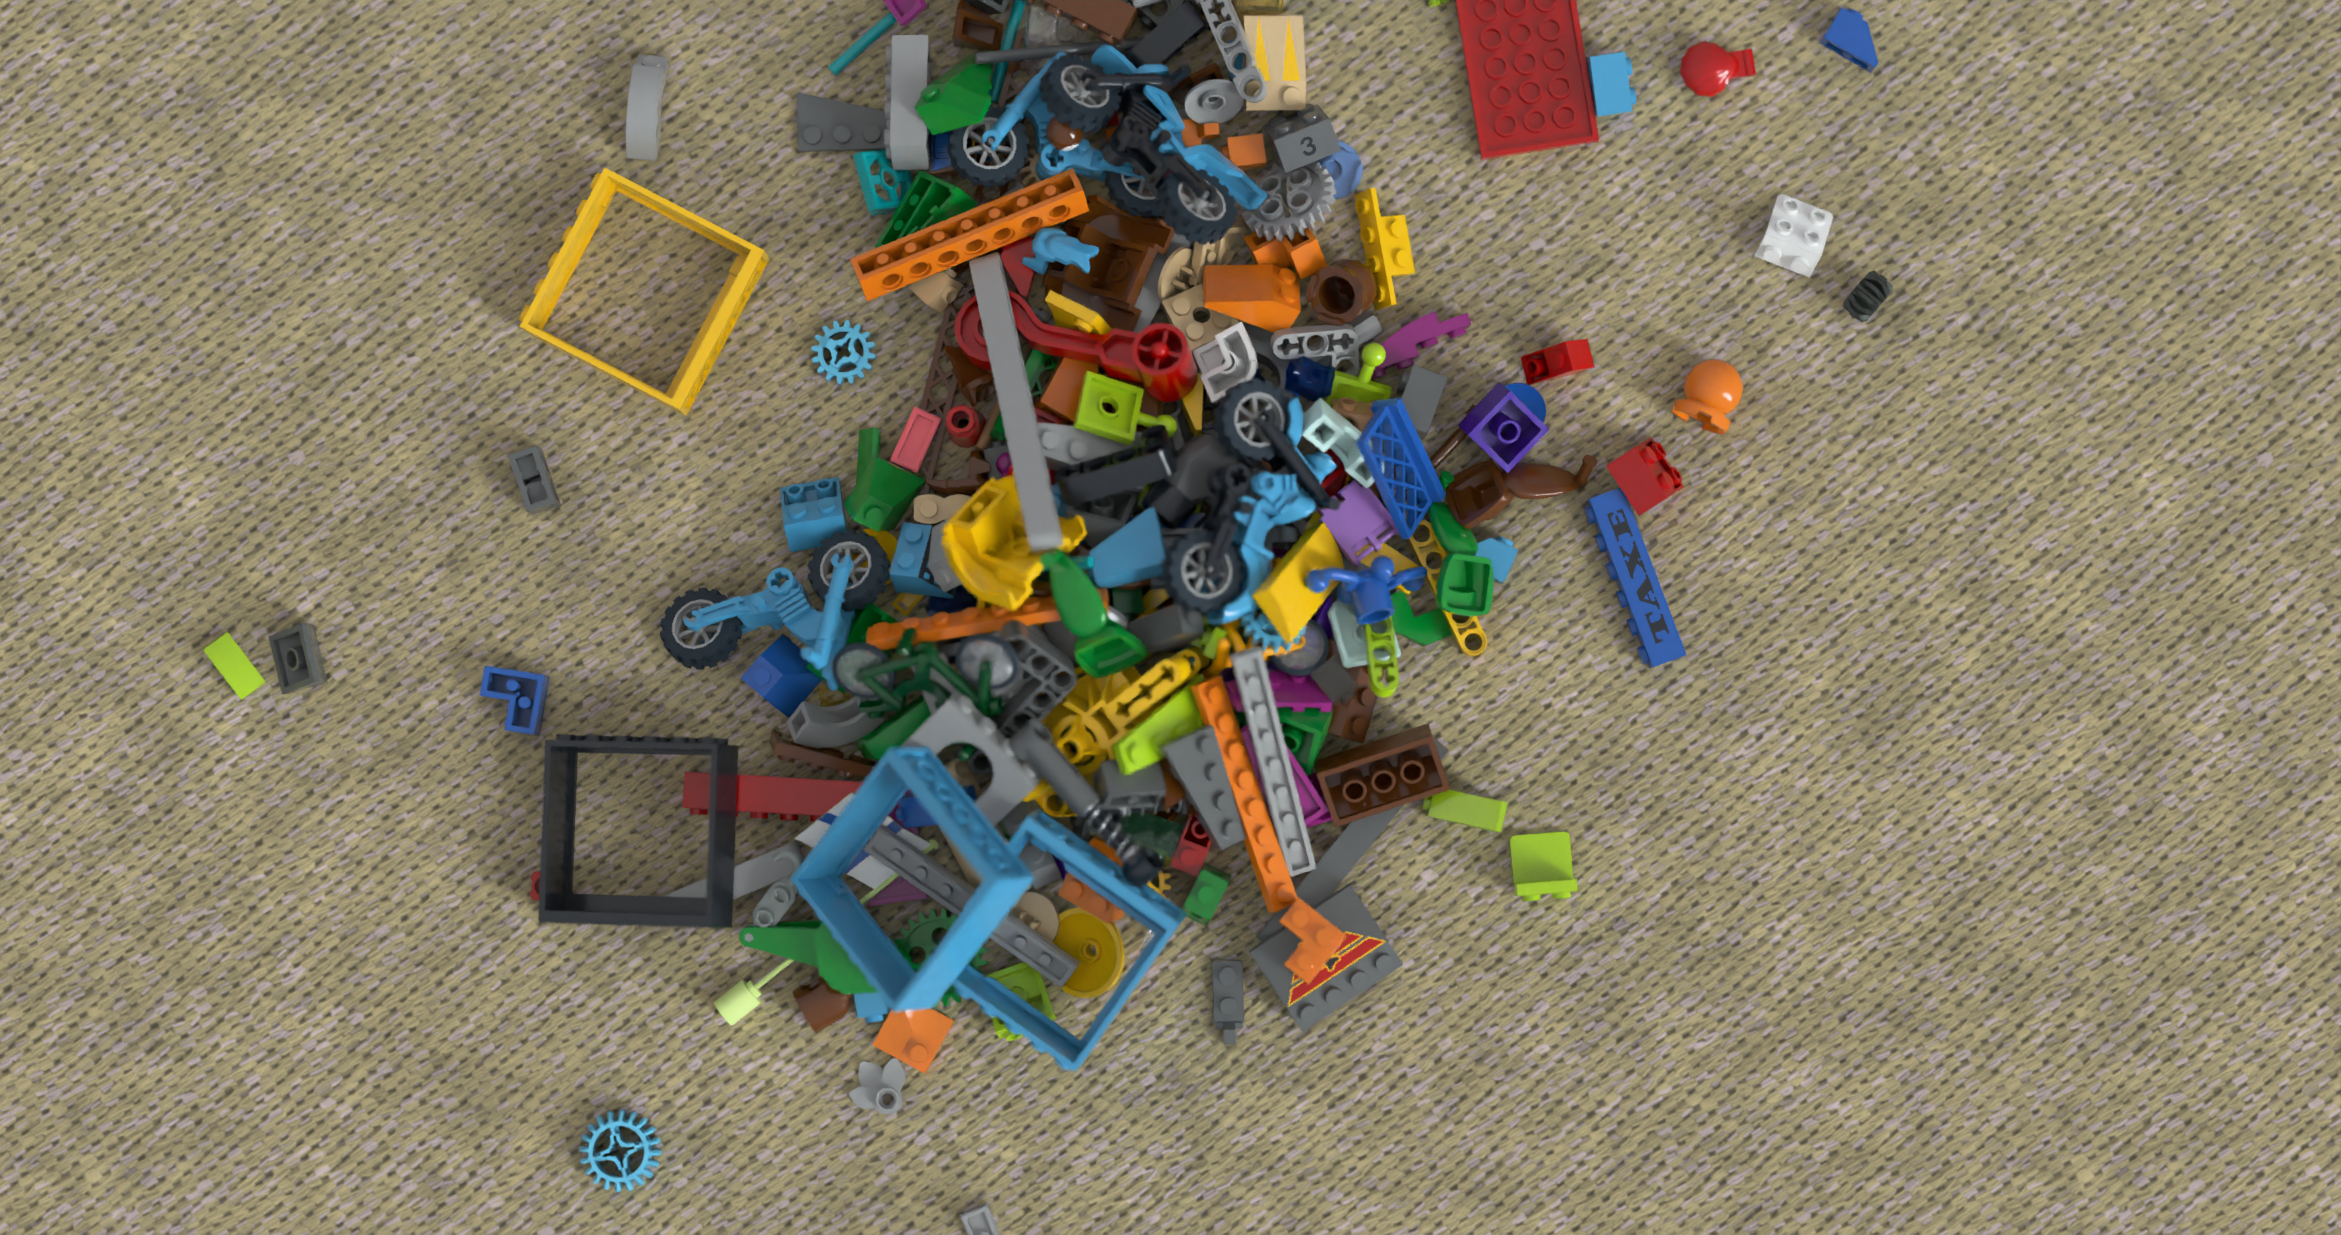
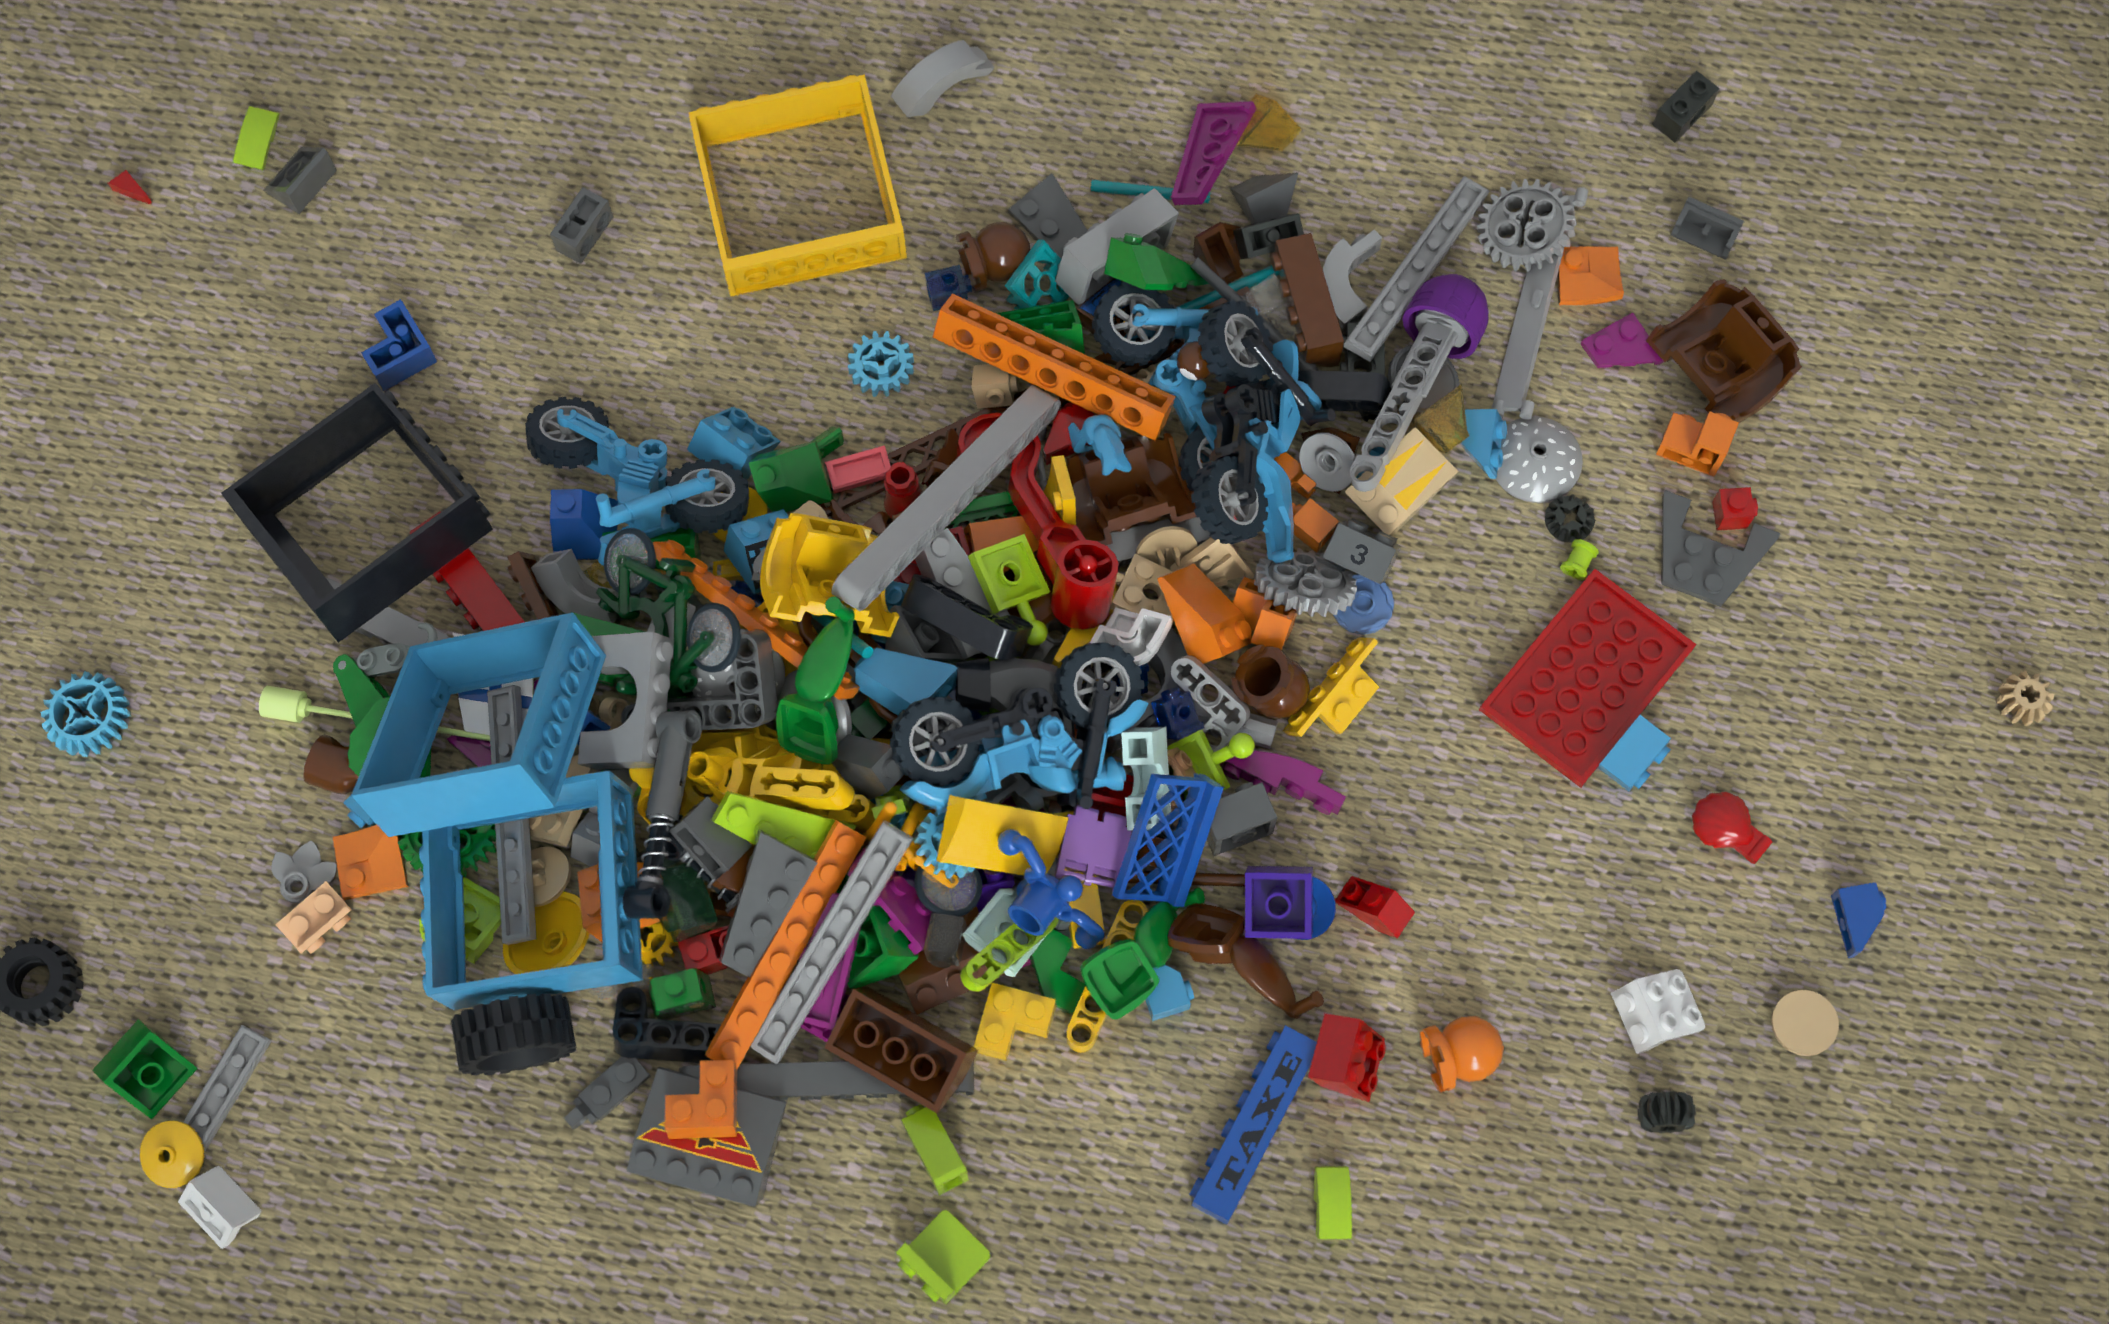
camera: 55 degrees right, 15 degrees down
(188, 794) = (128, 186): none -> red piece
(825, 251) = (944, 282): none -> clear blue brick
(832, 195) = (993, 253): none -> reddish brown tile
(925, 1104) = (314, 918): none -> light nougat bracket
(1143, 1033) = (513, 1034): none -> black tyre
(1211, 938) = (648, 1029): none -> black beam
(1415, 677) = (1008, 1011): none -> yellow brick
(1732, 572) = (1333, 1202): none -> lime slope
(1889, 146) = (1805, 1023): none -> tan piece

